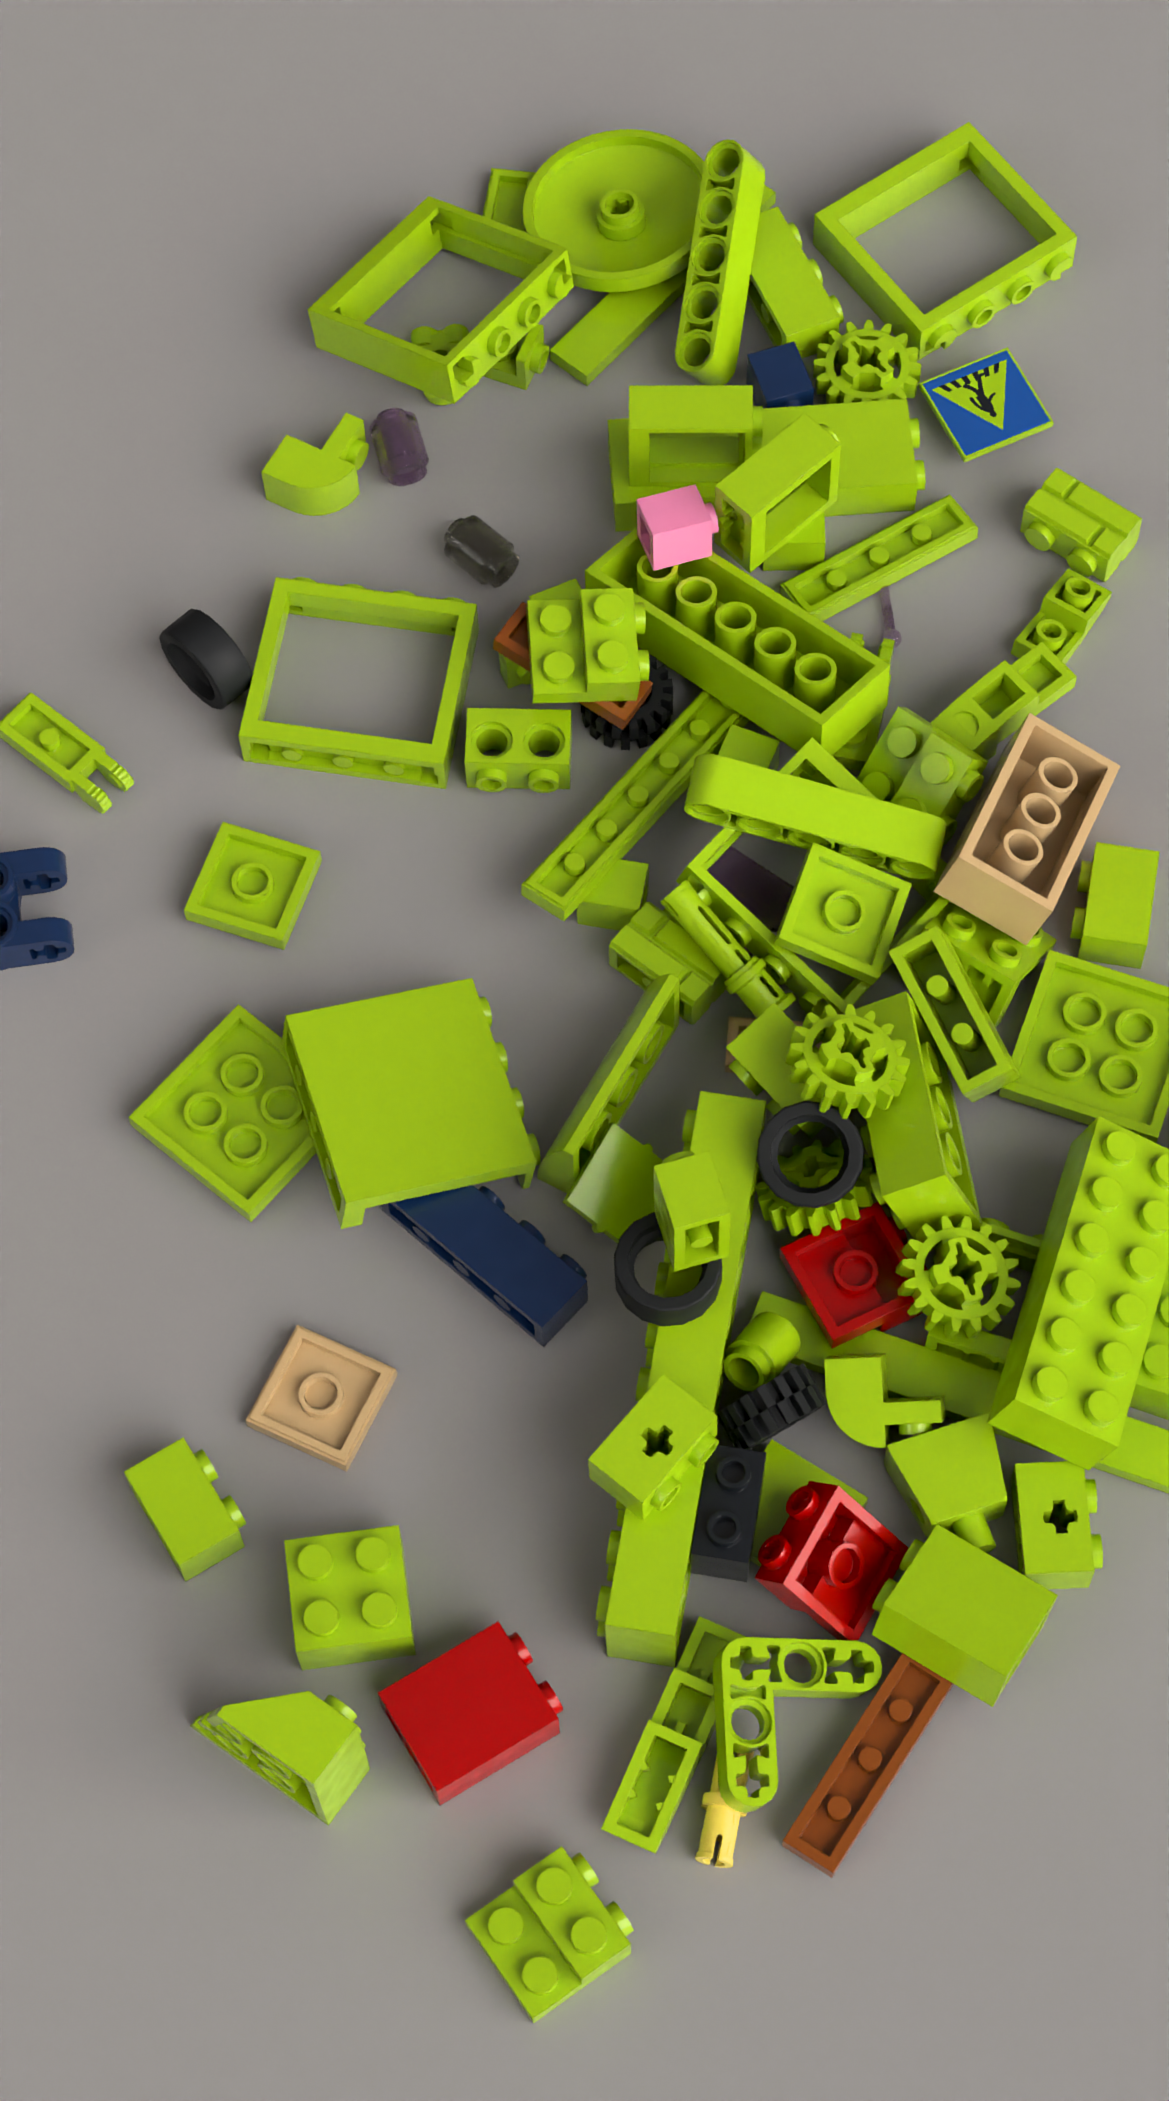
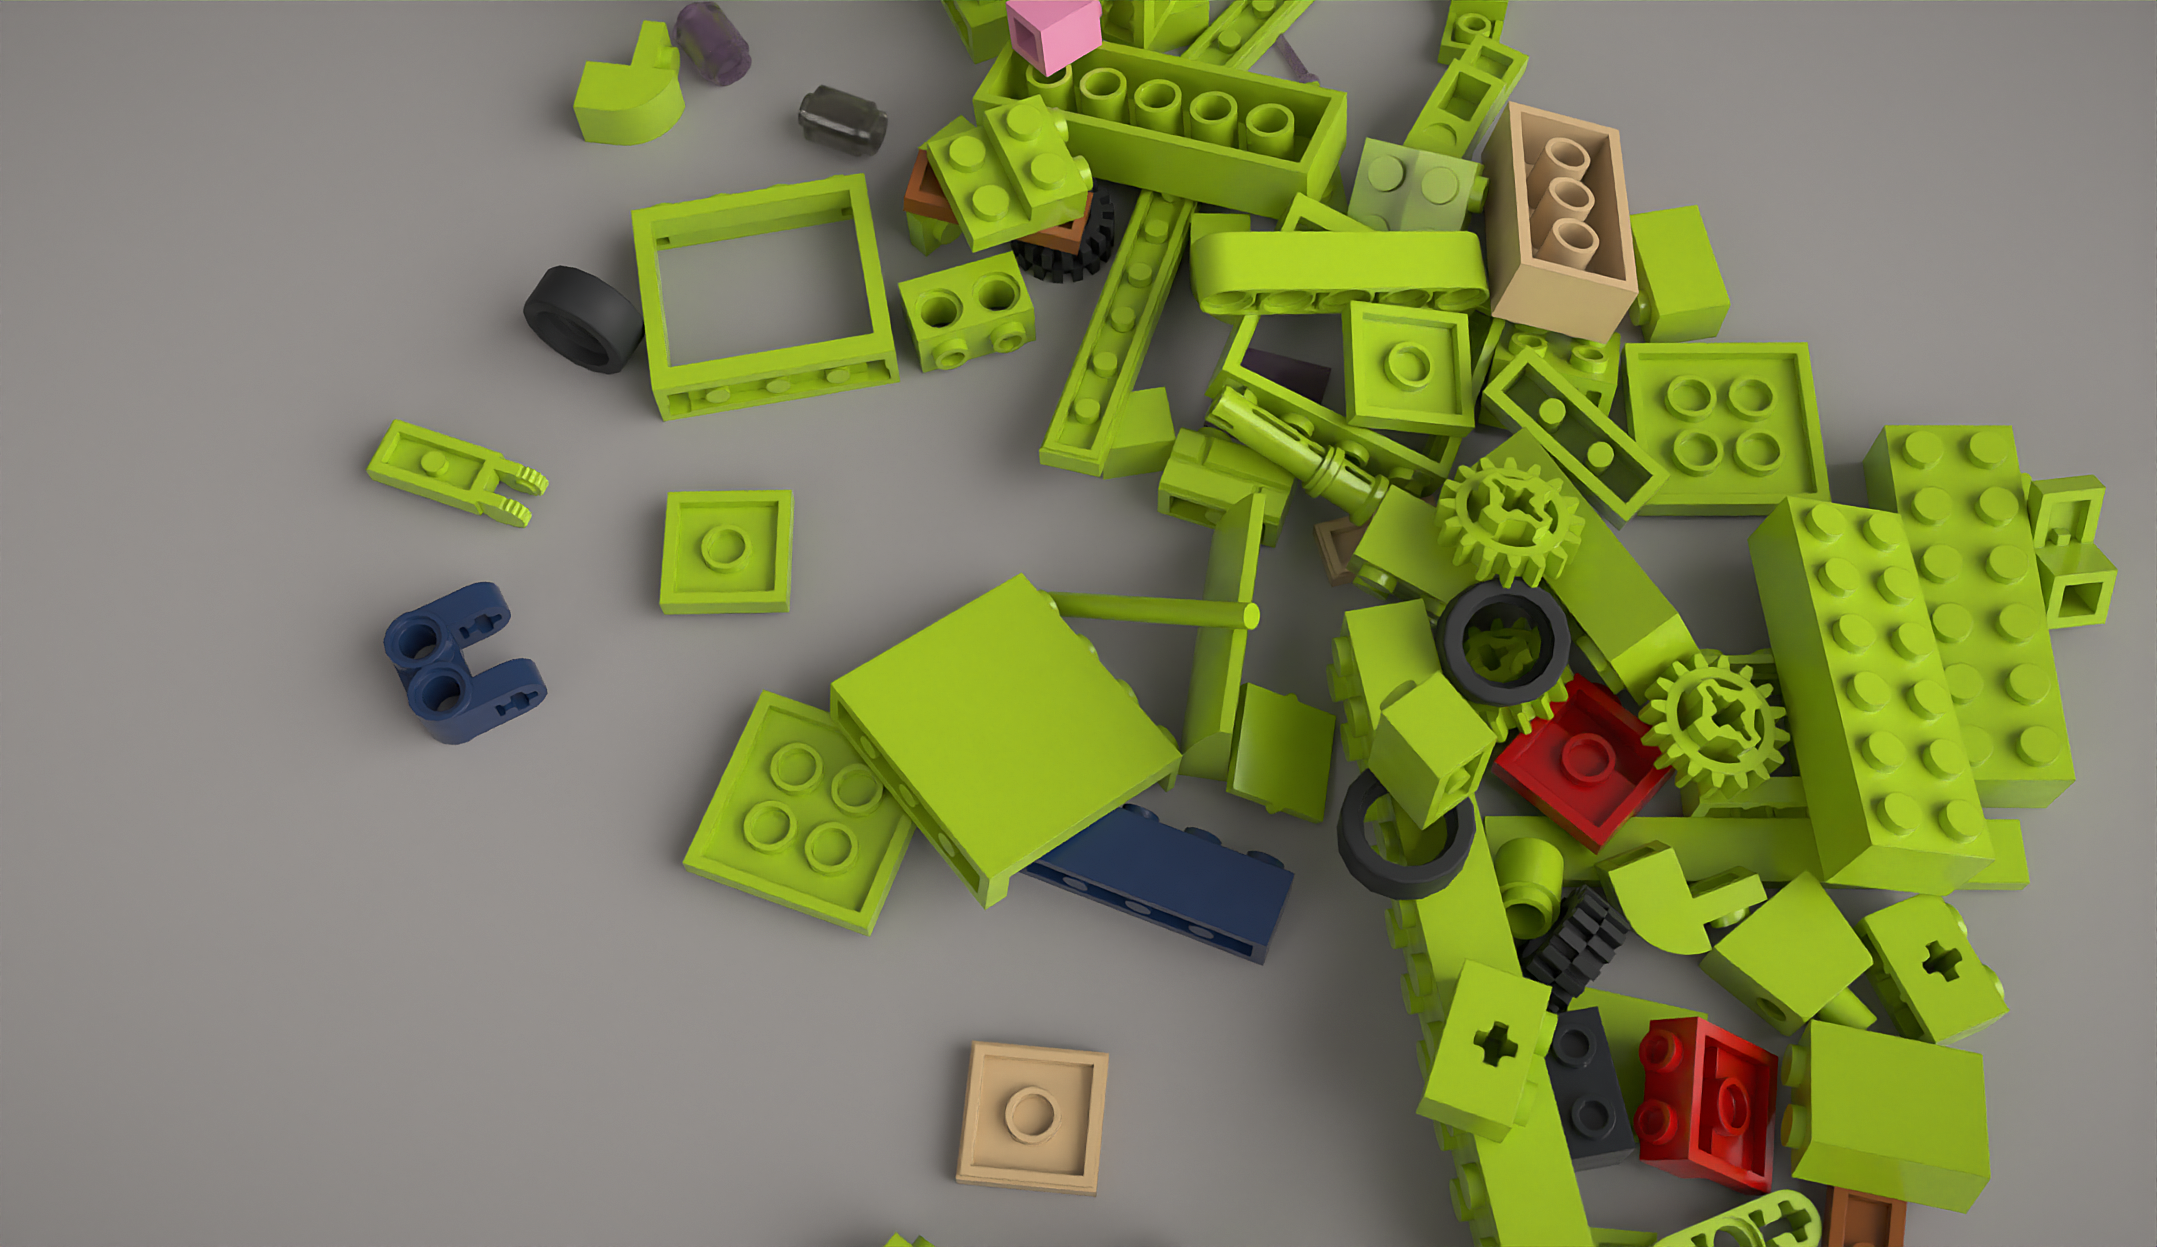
camera: 20 degrees left, 0 degrees up
(559, 1041) = (1157, 610): none -> lime bar

